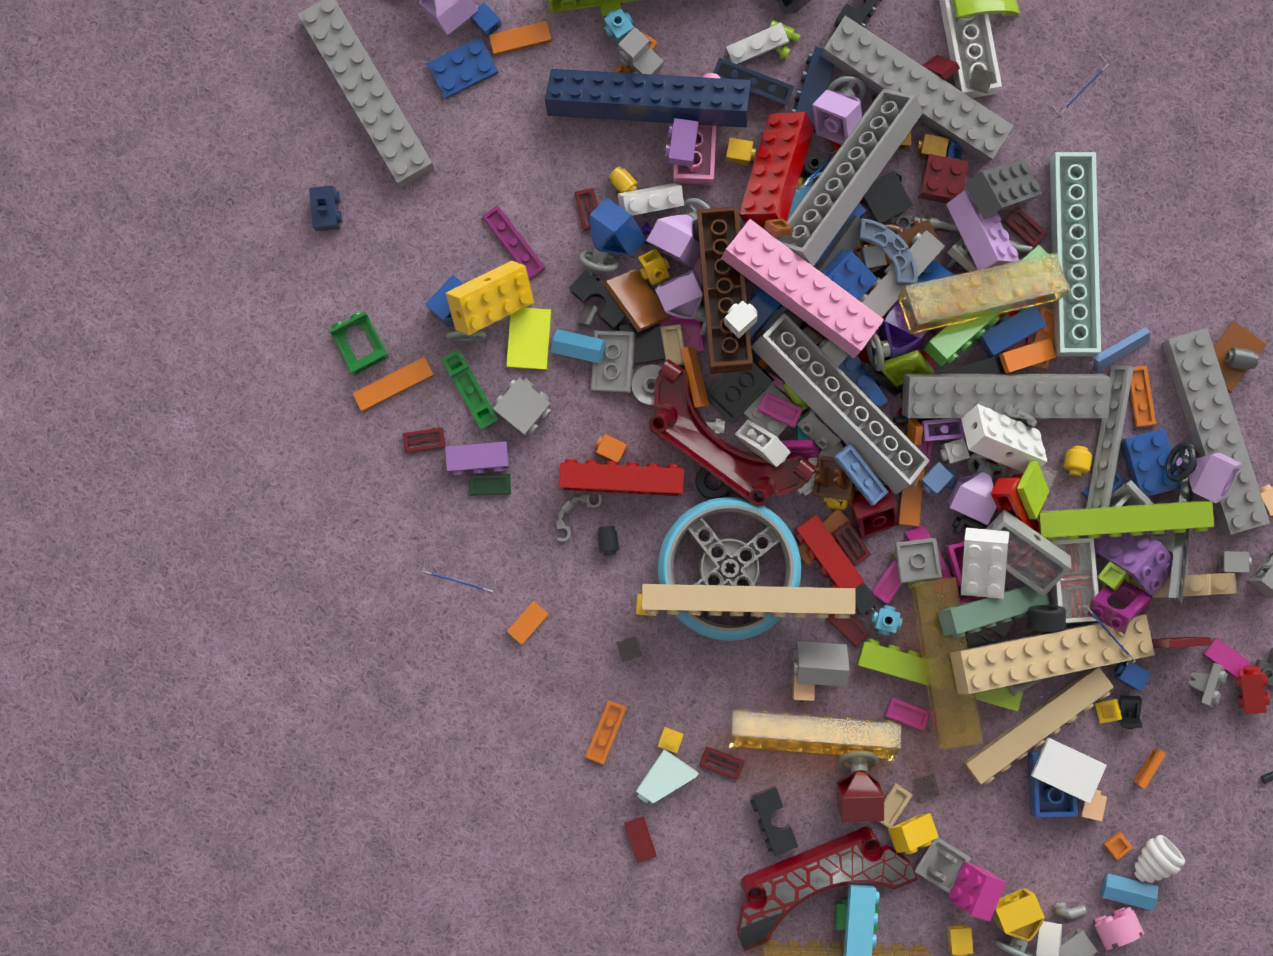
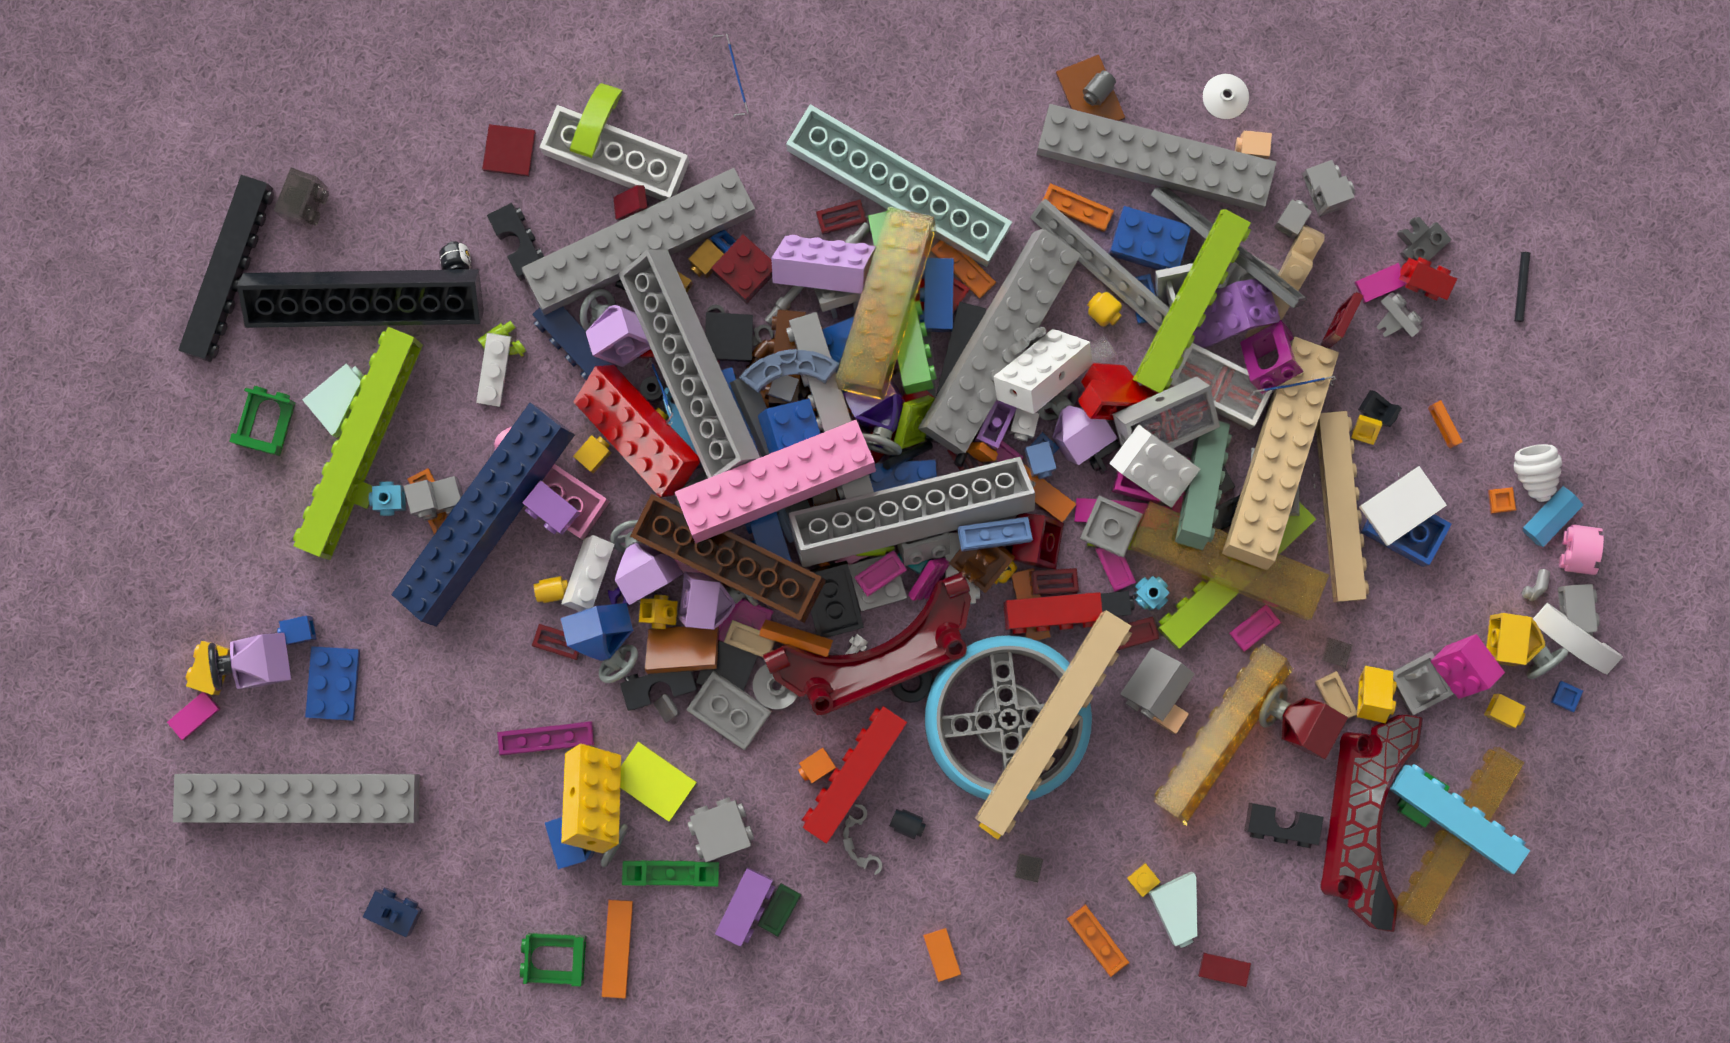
camera: 60 degrees left, 0 degrees up
(441, 438) = (702, 931): dark red tile -> none
(457, 580) = (856, 1002): blue piece -> none
(520, 38) = (337, 605): orange tile -> none
(578, 346) = (693, 737): dark azure piece -> none
(738, 769) = (1180, 854): dark red tile -> none
(740, 318) = (769, 561): white brick -> none
(760, 83) = (536, 391): dark blue brick -> none
(762, 443) = (903, 611): white brick -> none
(778, 227) = (700, 467): dark orange tile -> none
(980, 80) = (668, 172): clear smoke plate -> none
(1003, 188) = (792, 217): dark grey brick -> none
(1027, 356) = (972, 294): orange tile -> none
(1033, 489) = (1109, 373): lime tile -> none
(1047, 618) = (1243, 436): black tyre -> none
(1095, 808) = (1454, 500): light nougat brick -> none
(1113, 576) = (1239, 346): lime panel -> none
(1121, 349) = (1020, 198): medium blue tile -> none
(1131, 675) = (1345, 385): blue brick -> none
(1208, 475) = (1195, 193): lavender piece -> none

